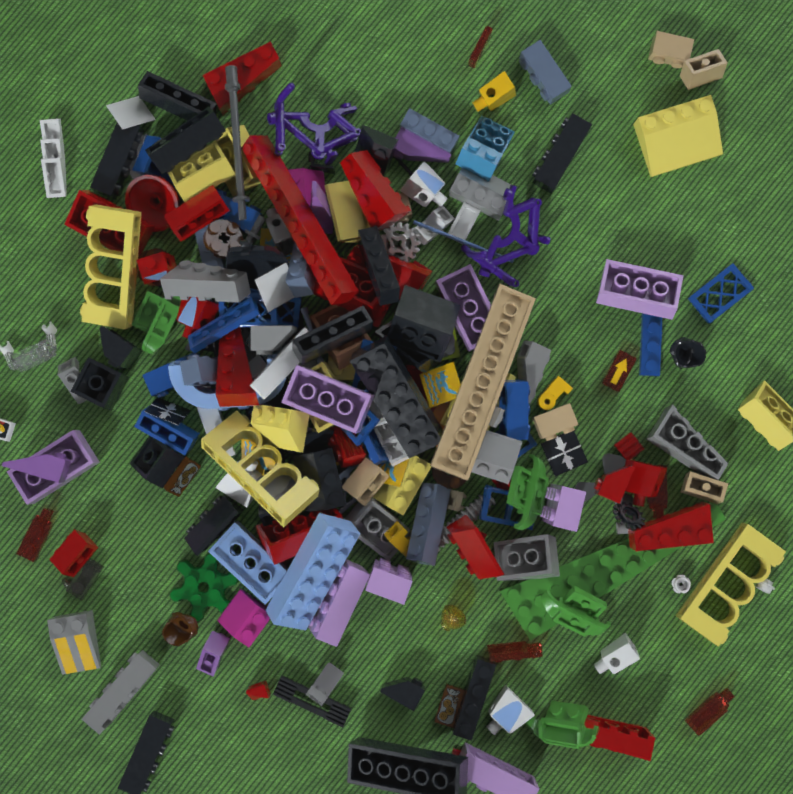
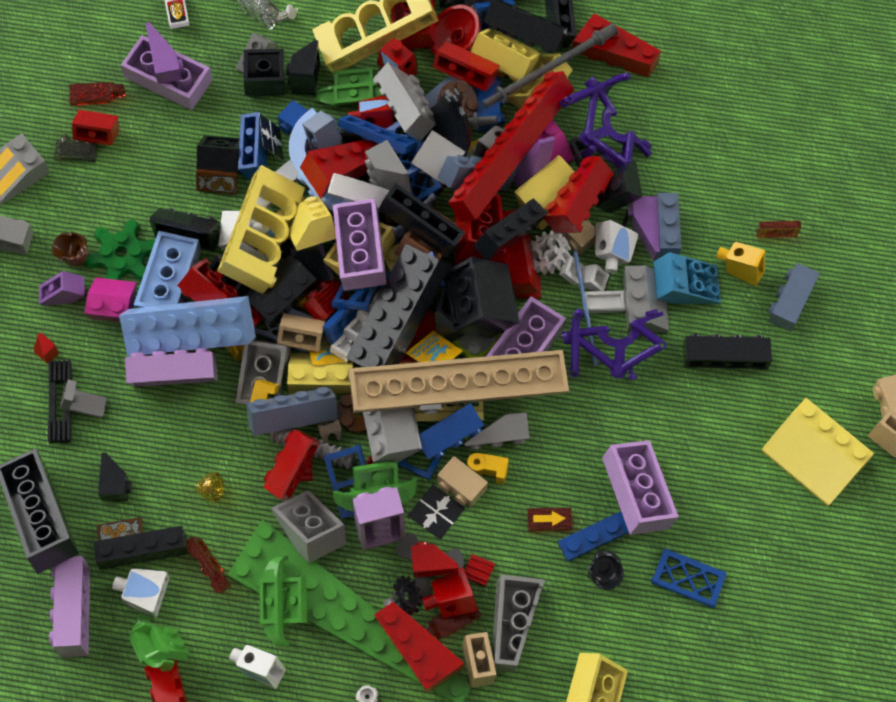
camera: 60 degrees right, 20 degrees down
(389, 580) = (217, 395): lavender brick -> none

